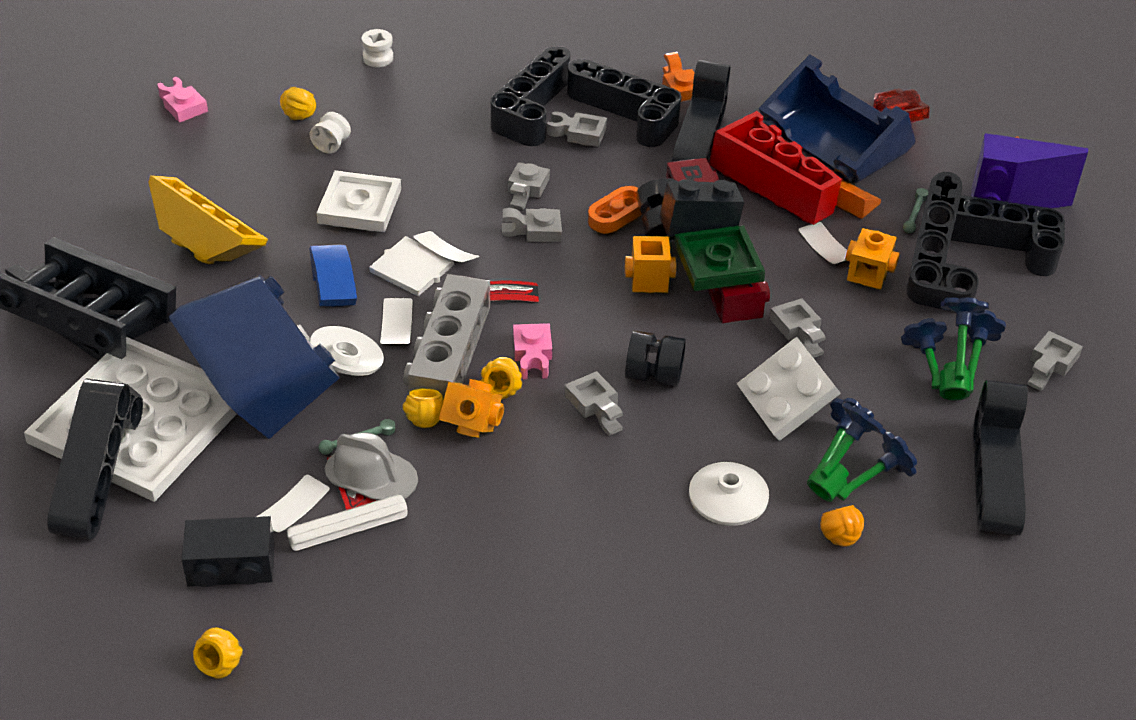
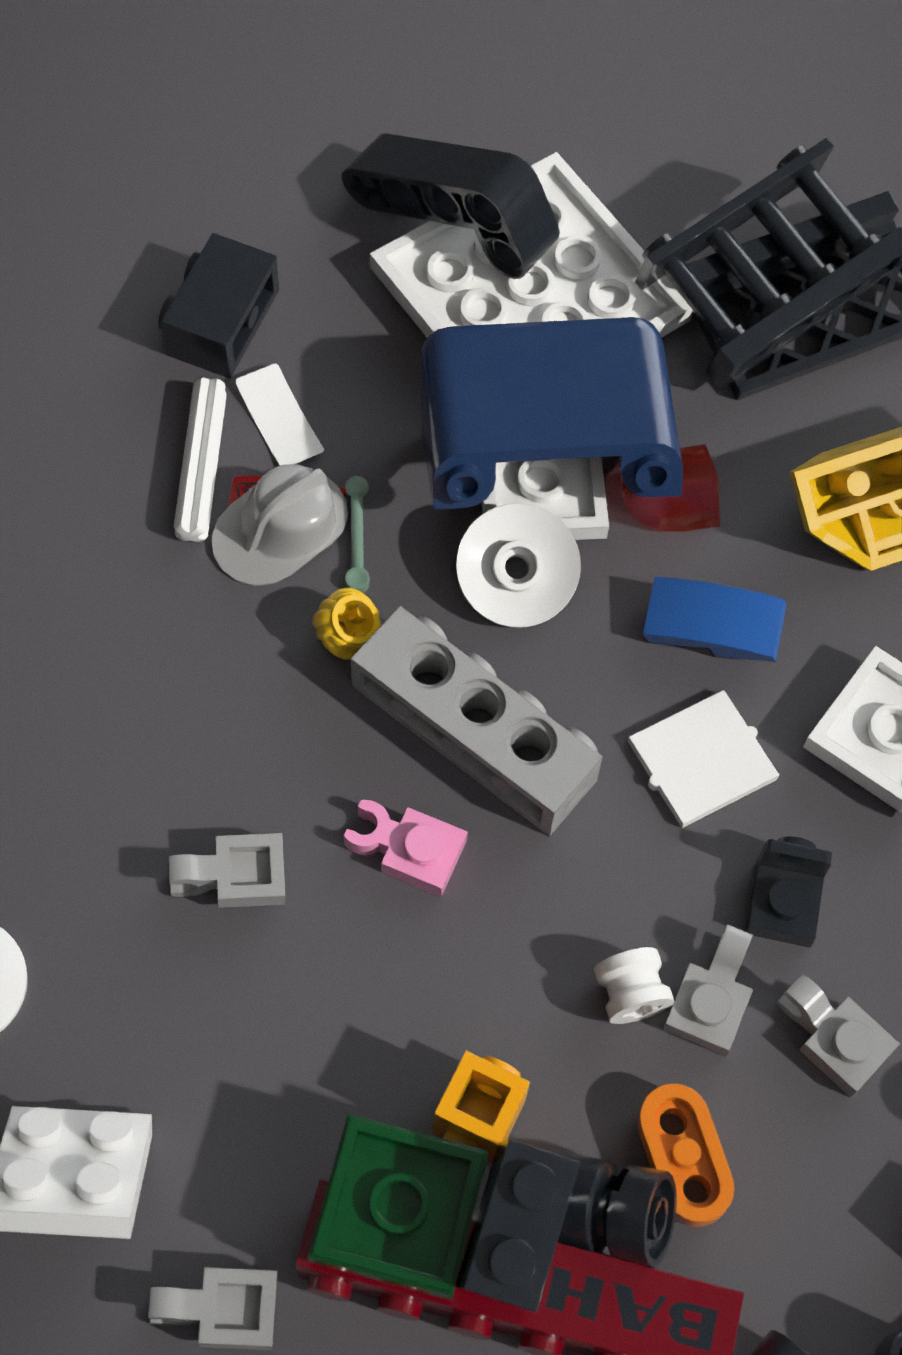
camera: 115 degrees right, 20 degrees up
(217, 653) = (72, 248): yellow piece -> none
(396, 321) = (576, 682): white sticker -> none
(442, 248) = (718, 822): white sticker -> none
(460, 404) = (300, 676): light orange brick -> none
(467, 216) = (788, 891): none -> black bracket
(503, 375) = (352, 756): yellow piece -> none
(514, 291) = (570, 873): sticker -> none
(552, 243) = (633, 985): none -> white wheel
(668, 361) = (260, 998): black wheel -> none

